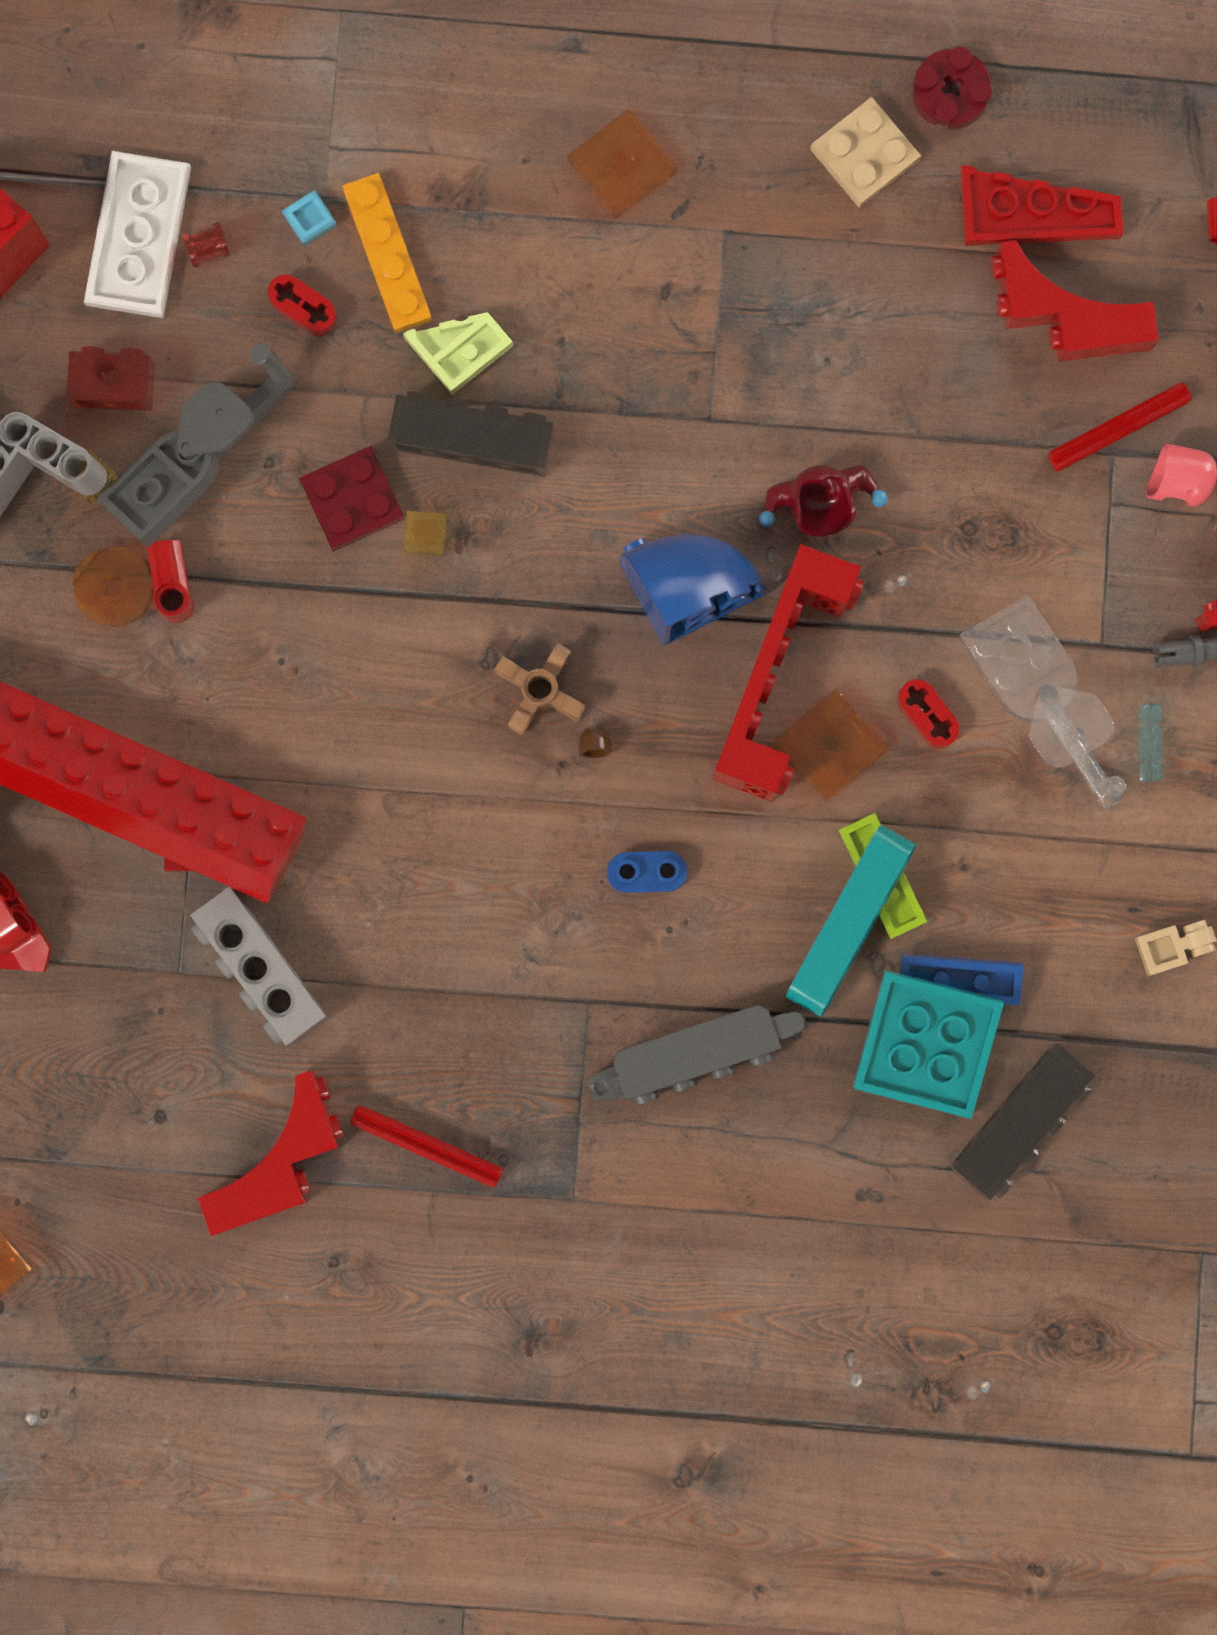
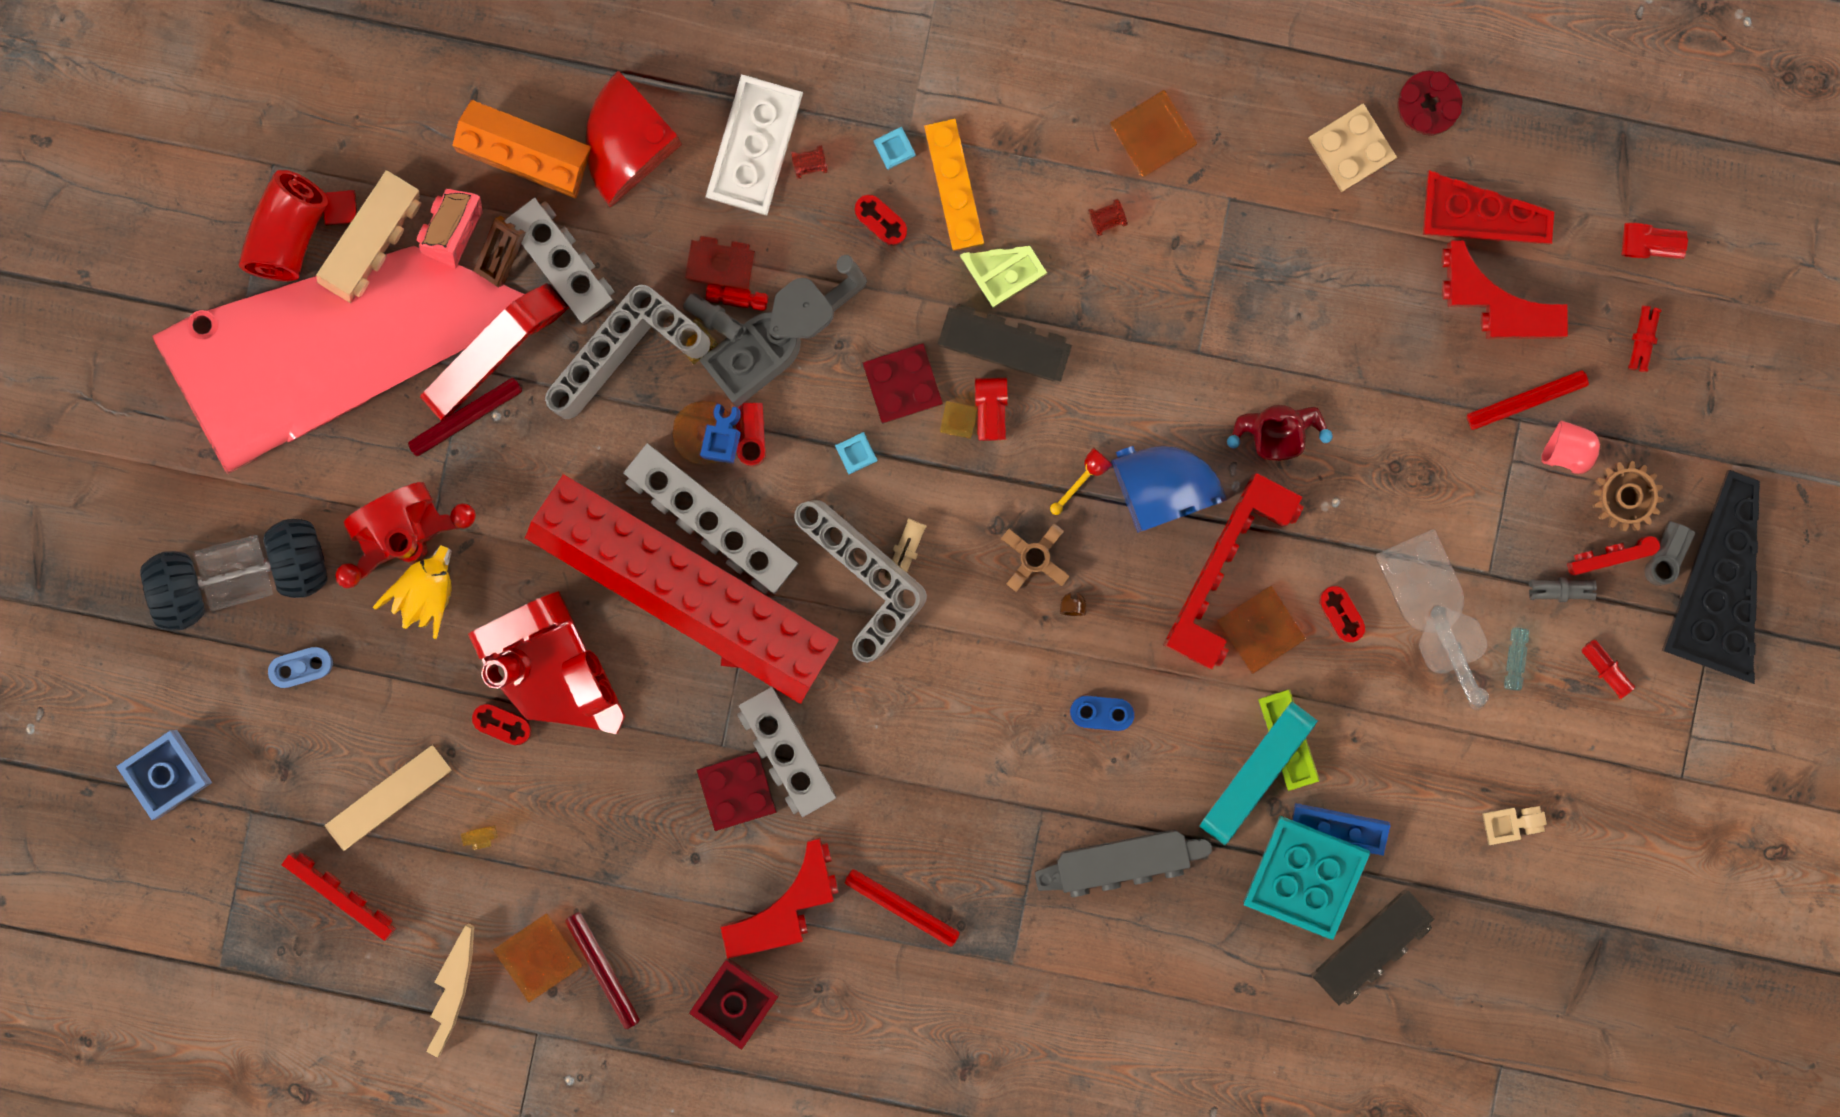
camera: 20 degrees right, 5 degrees up
(49, 630) = (651, 461): none -> light grey brick
(57, 1272) = (602, 970): none -> dark red axle
(109, 444) = (714, 317): none -> dark grey pin
(134, 588) = (722, 440): none -> blue plate
(136, 418) = (736, 297): none -> red axle
(202, 1025) = (736, 791): none -> dark red plate
(226, 1292) = (734, 1003): none -> dark red brick
(304, 590) = (856, 453): none -> medium azure tile
(335, 731) = (868, 574): none -> light grey beam
(378, 702) = (914, 531): none -> tan pin
(463, 507) = (991, 402): none -> red piece
(579, 268) = (1107, 217): none -> clear red bush
(600, 568) = (1095, 465): none -> hinge

